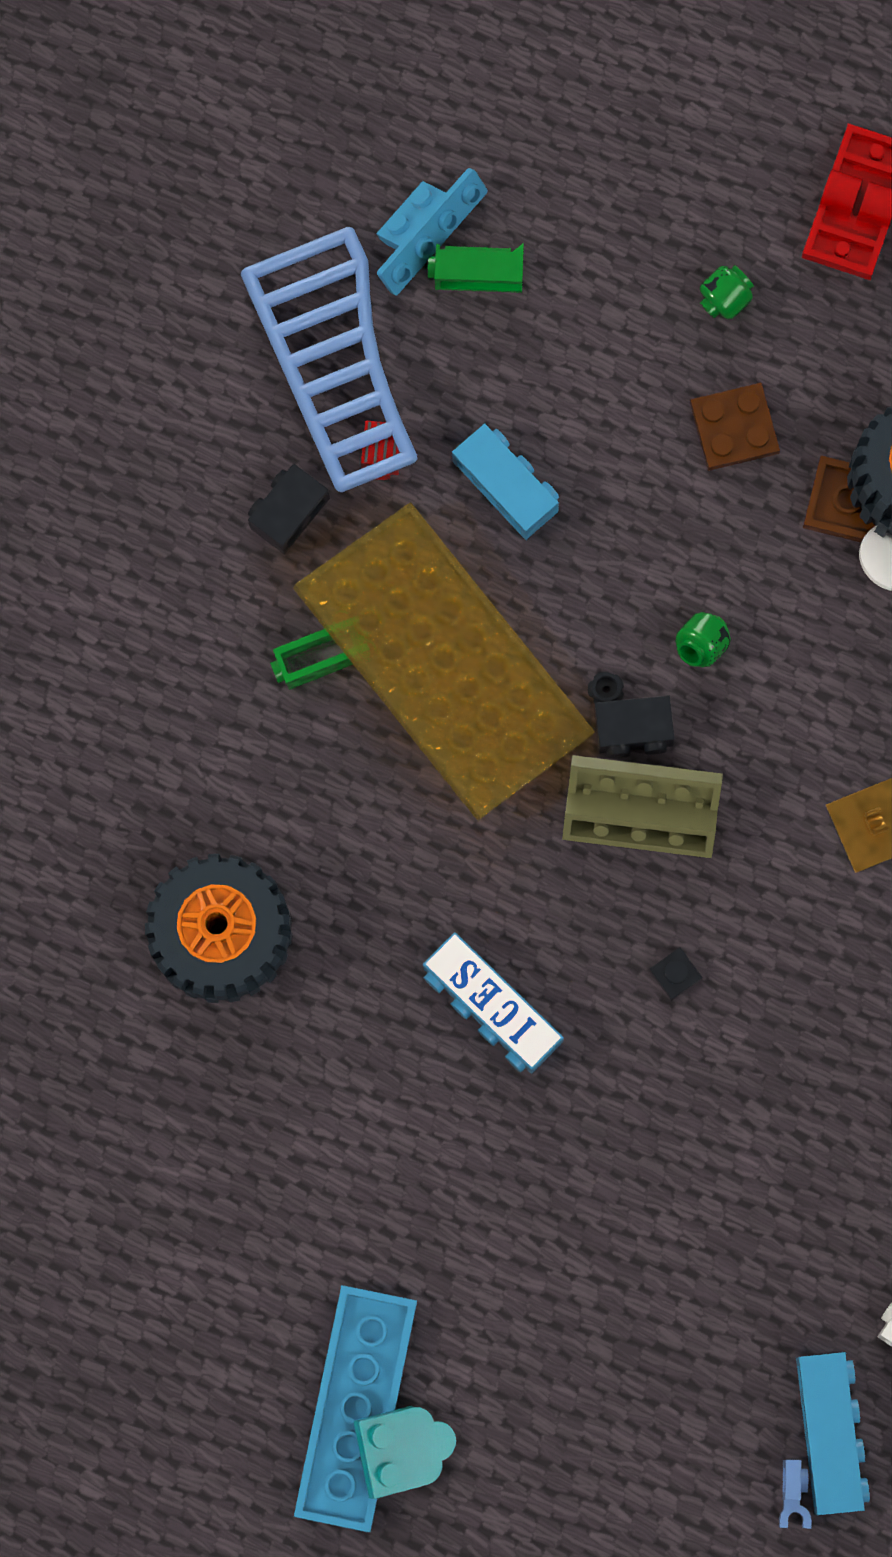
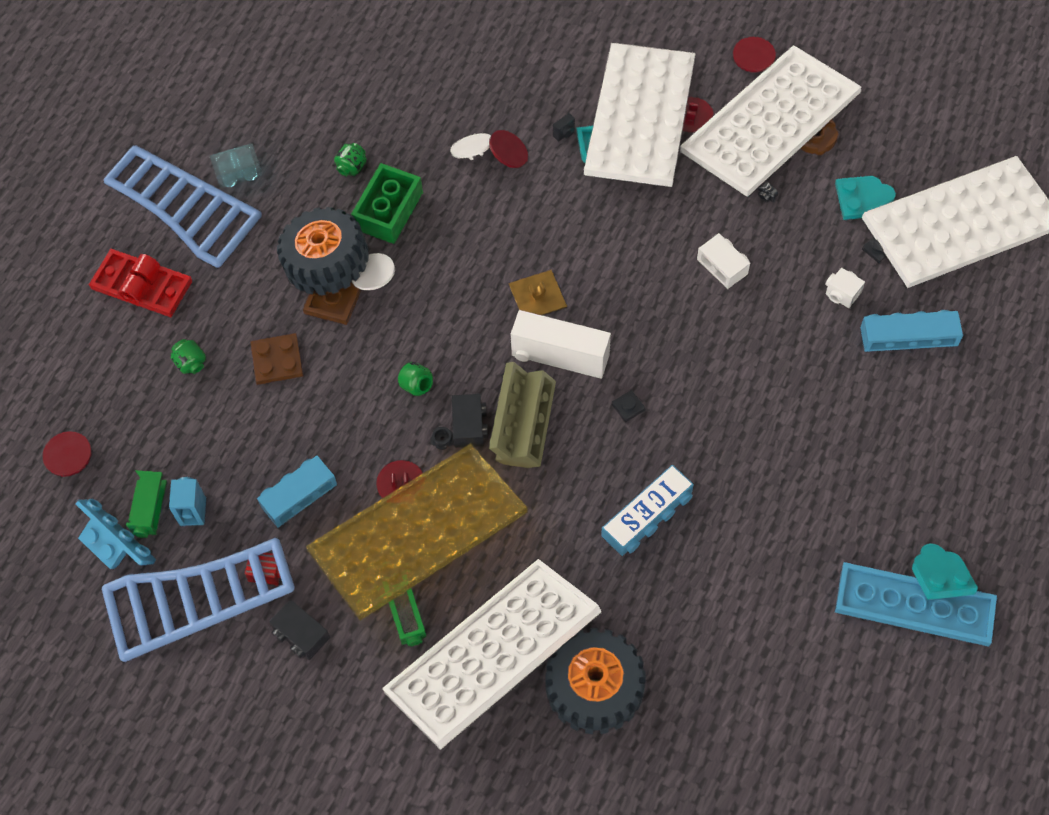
camera: 90 degrees left, 15 degrees down
(255, 778) = (490, 652): none -> white plate
(475, 325) = (187, 501): none -> dark azure brick
(540, 628) = (395, 476): none -> dark red piece
(553, 142) = (67, 454): none -> dark red piece
(767, 858) = (560, 344): none -> white brick
(794, 1482) = (945, 352): medium blue plate -> none

